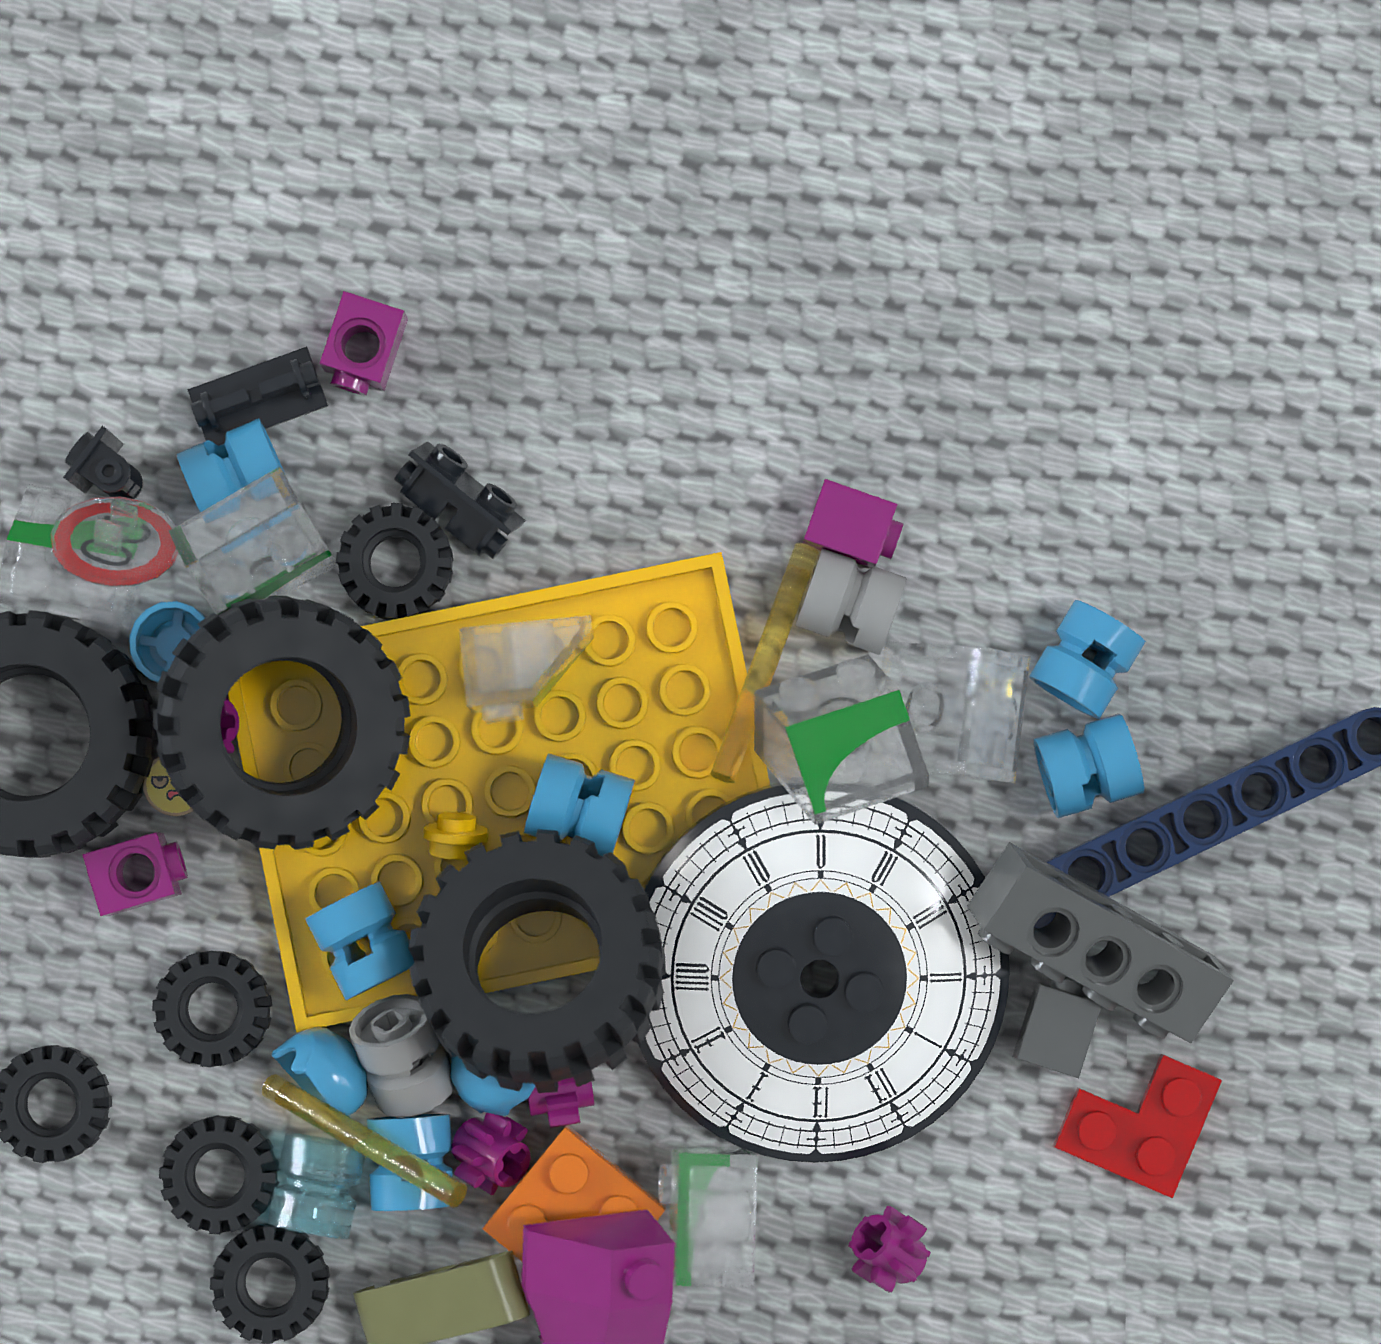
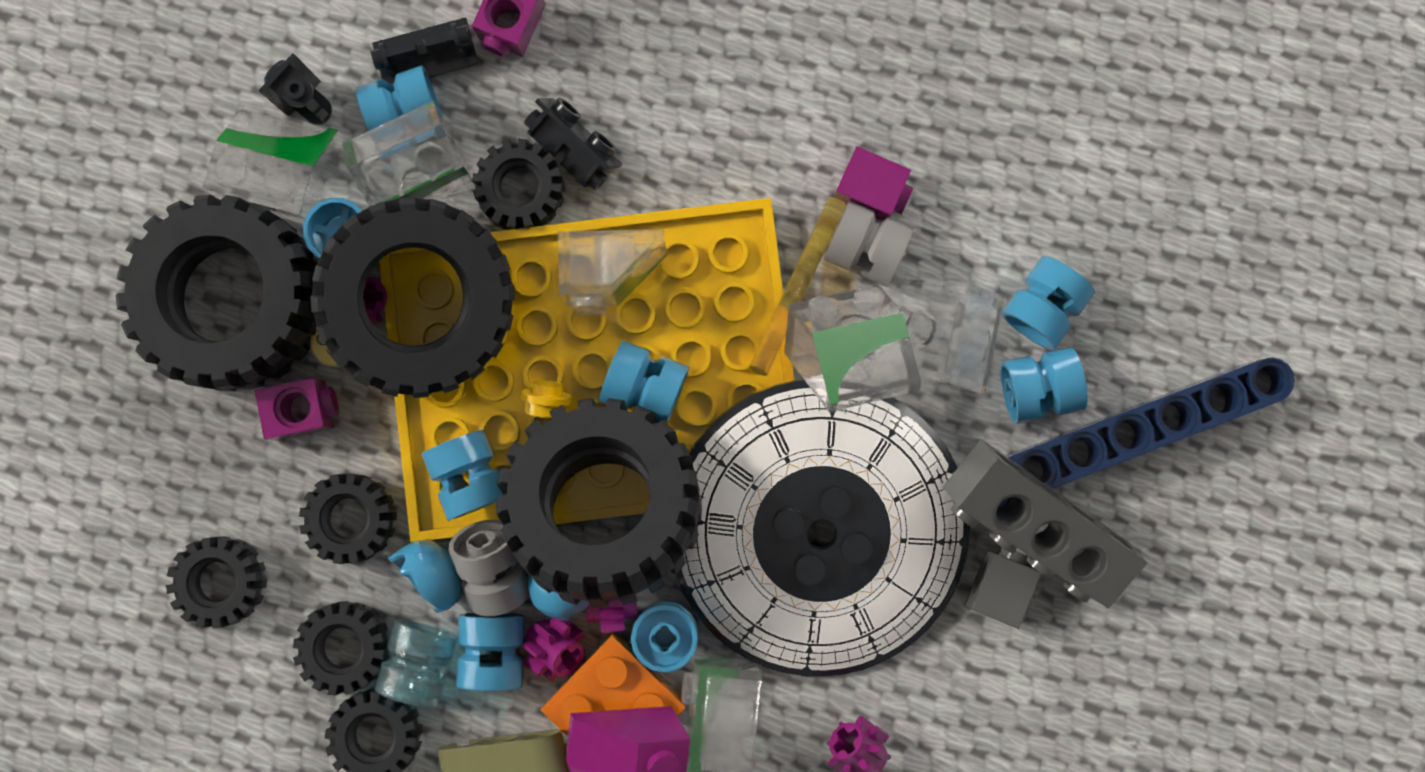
camera: 10 degrees right, 0 degrees up
(114, 541) = (299, 150): clear piece -> none
(364, 1141) = (455, 634): clear yellow bar -> none
(631, 1124) = (665, 636): none -> dark azure wheel
(1148, 1143) = (1065, 682): red plate -> none

